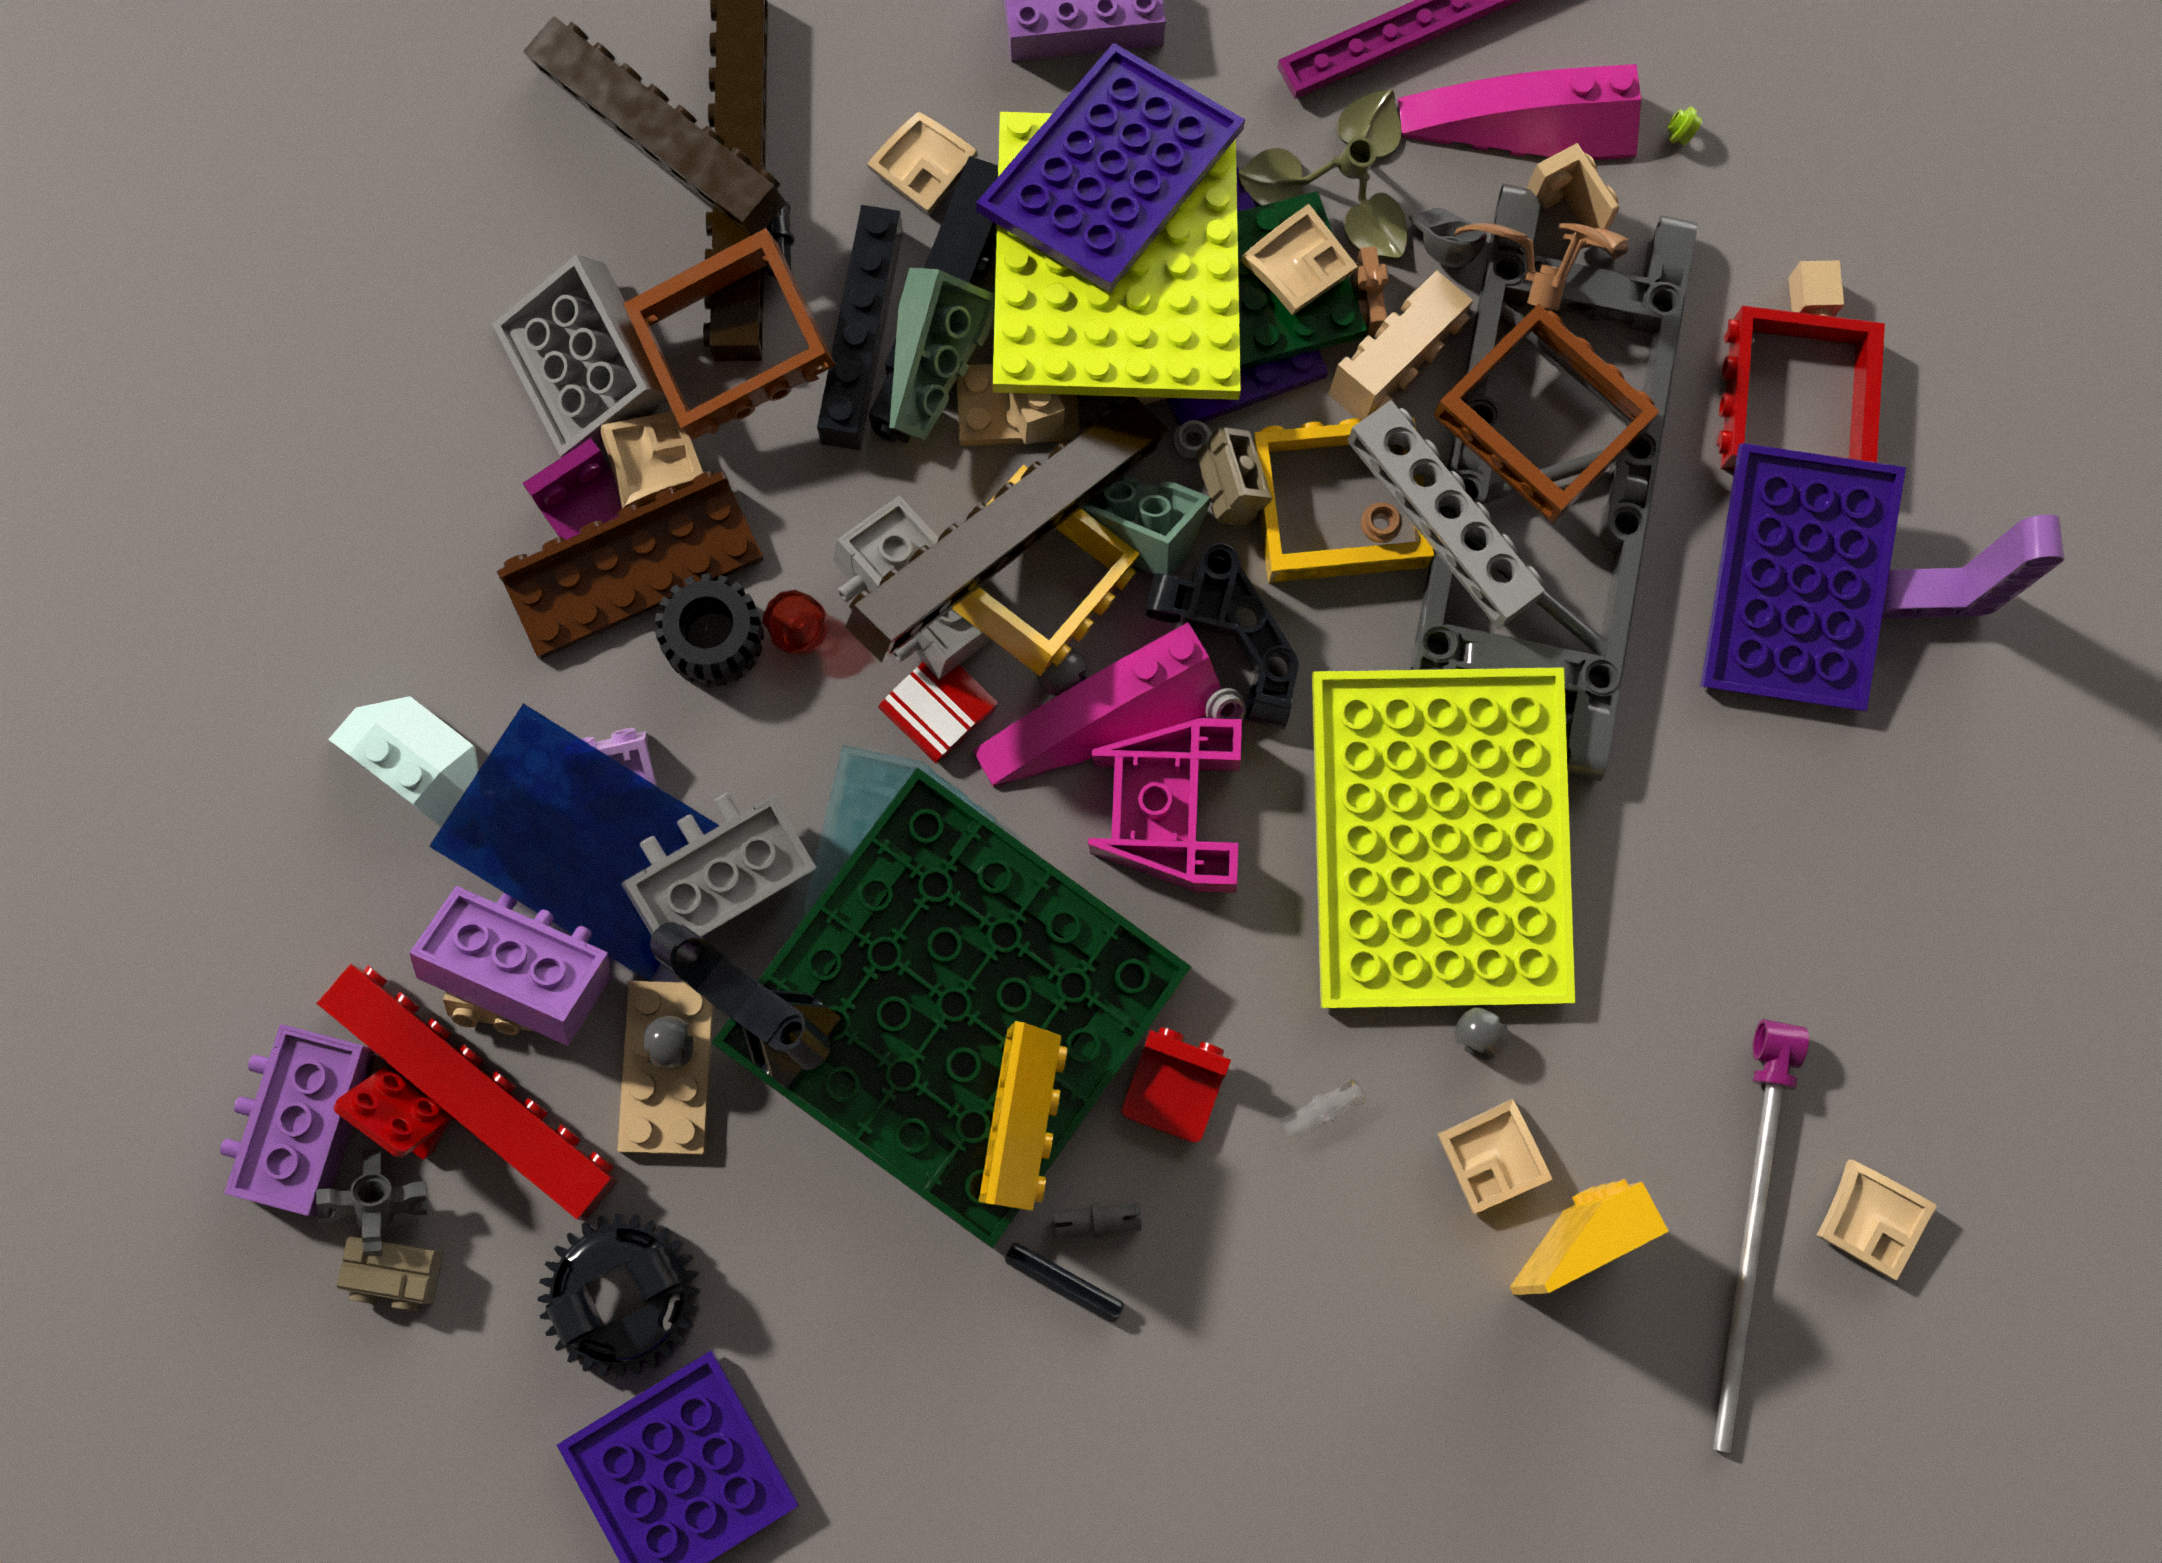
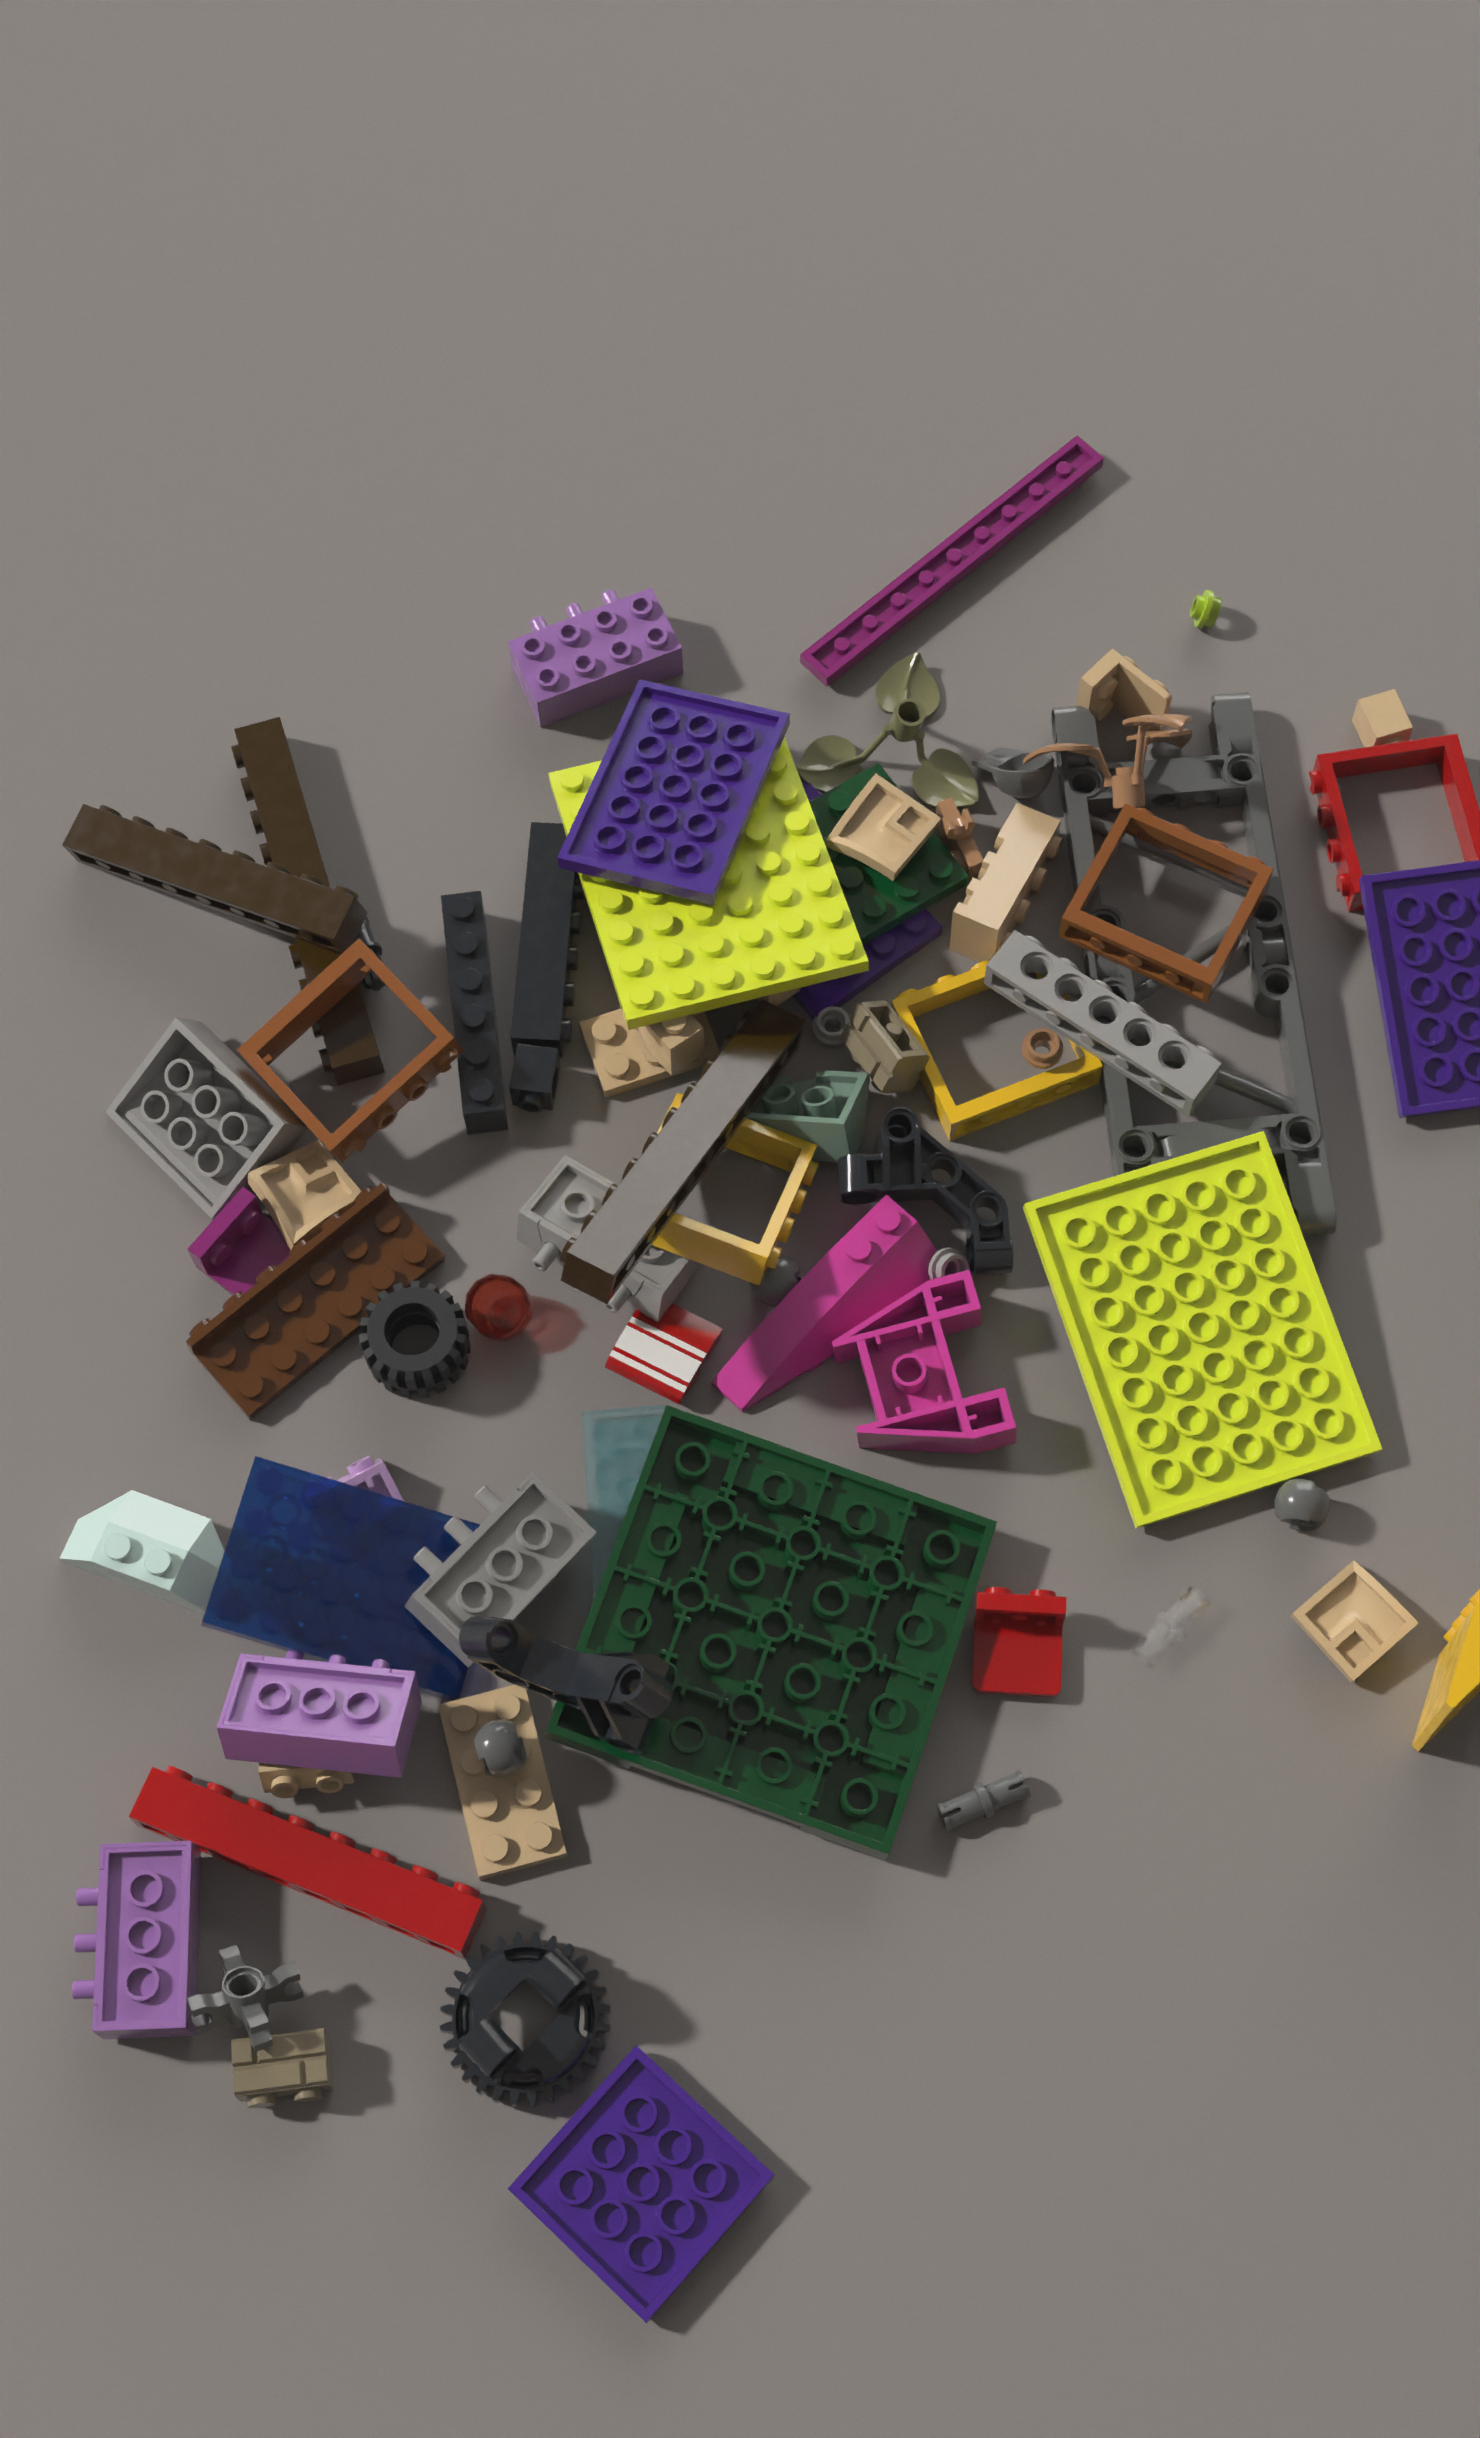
camera: 10 degrees left, 10 degrees down
(394, 1114) = (245, 1901): red bracket -> none
(922, 161) = (485, 841): tan plate -> none
(935, 336) = (554, 992): sand green wedge -> none
(1021, 1117) = (877, 1709): yellow slope -> none
(1064, 1282) = (970, 1871): black axle -> none
(1533, 112) = (1058, 636): dark pink wedge -> none

